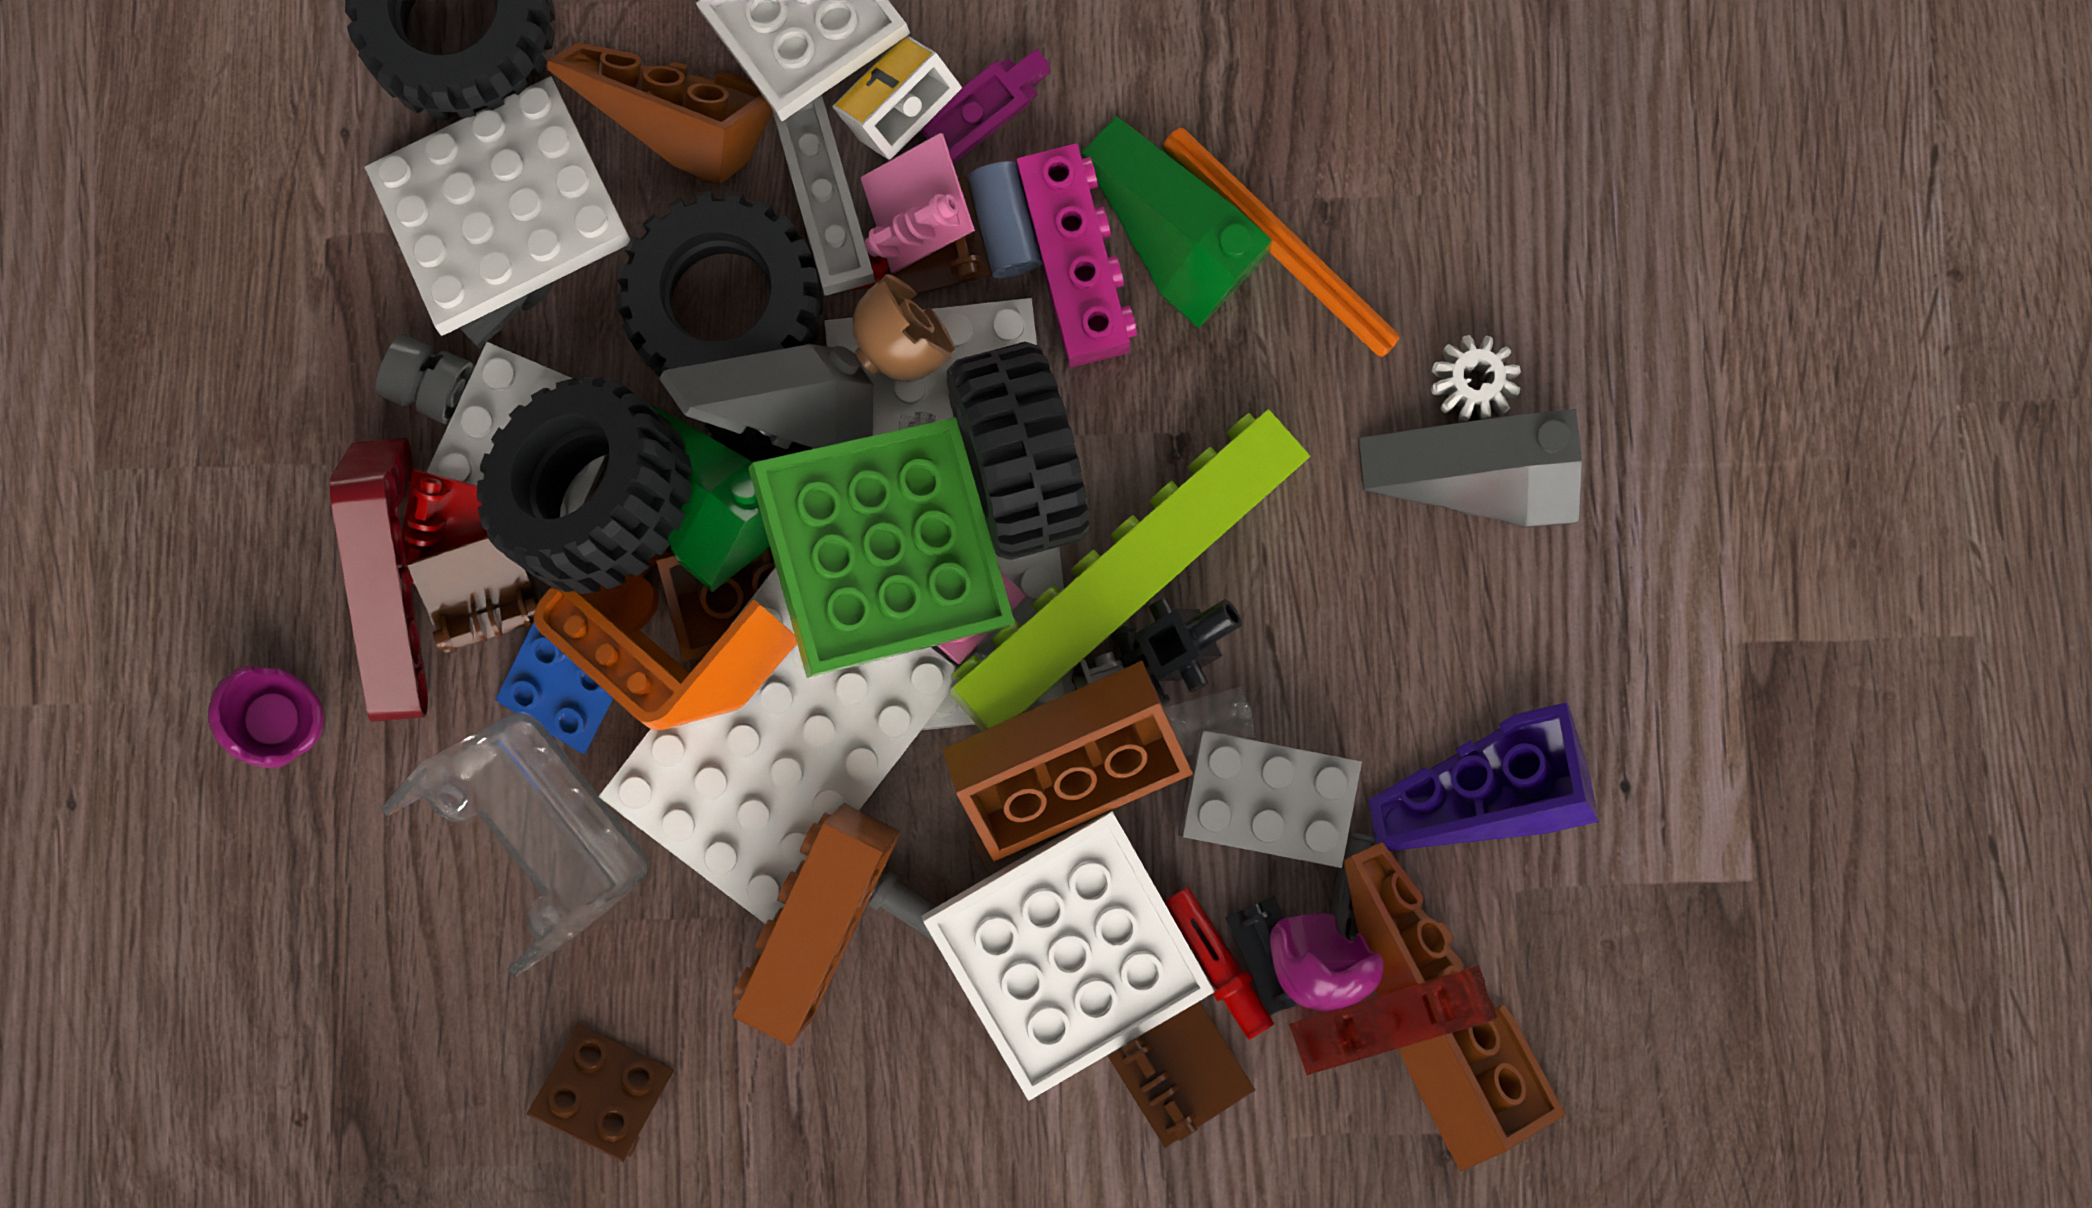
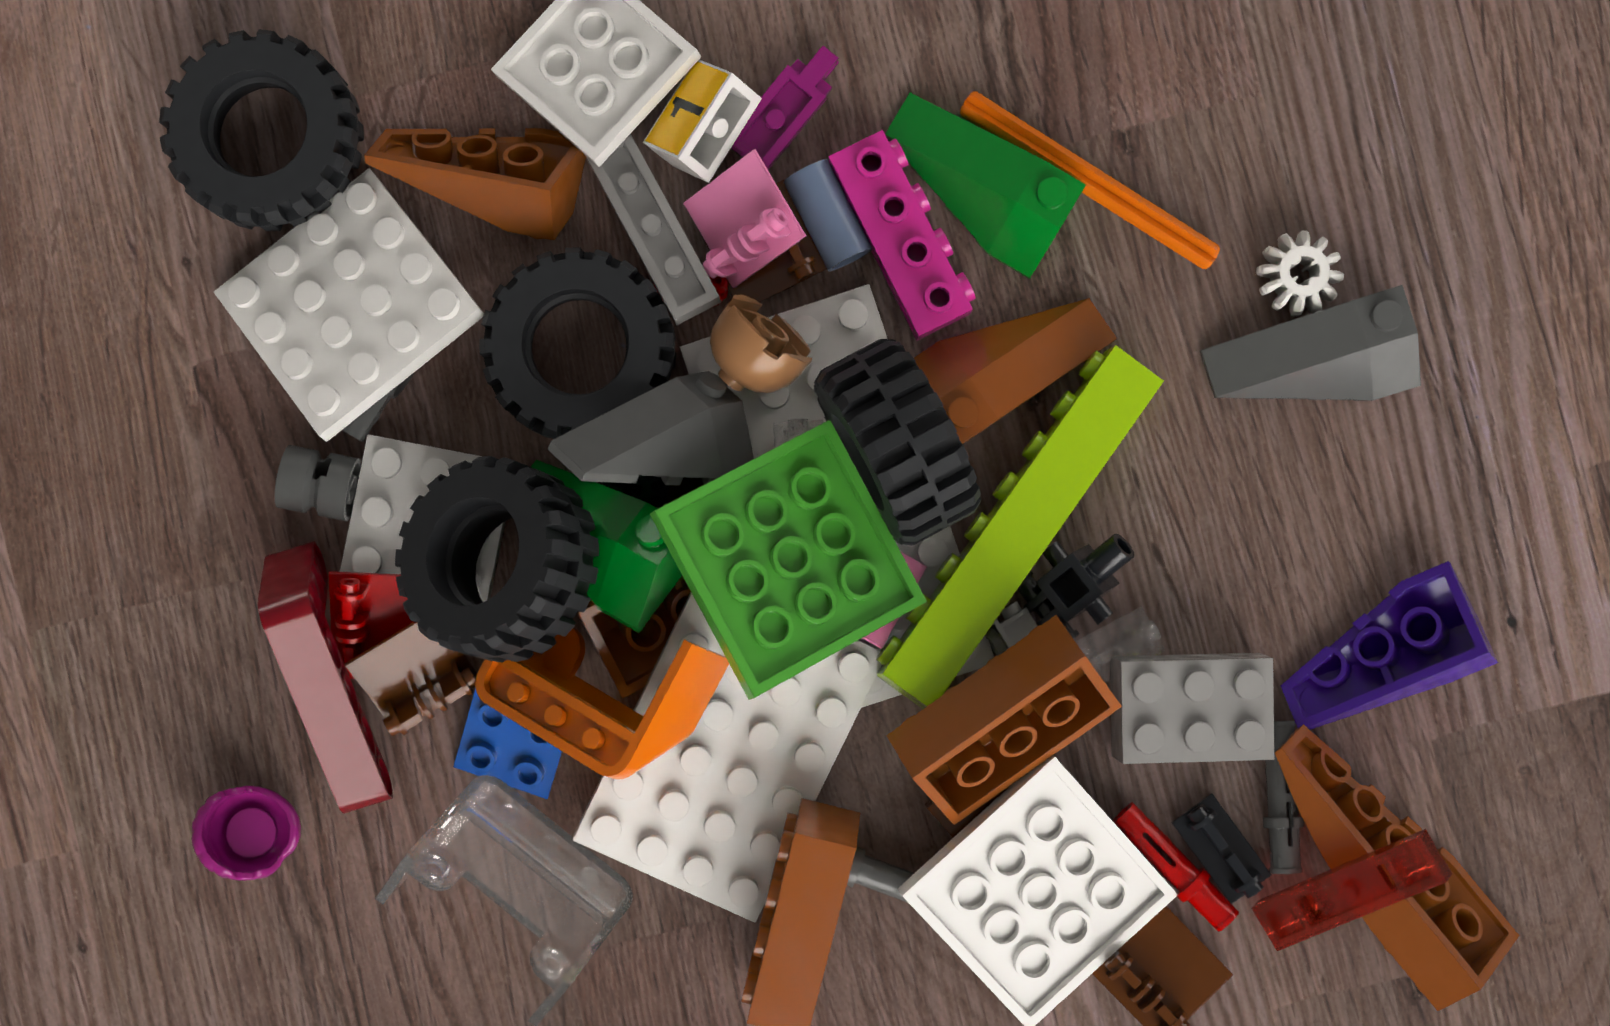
camera: 15 degrees left, 5 degrees up
(1149, 412) = (1006, 364): none -> dark orange wedge
(1320, 964) = (1276, 854): magenta piece -> none

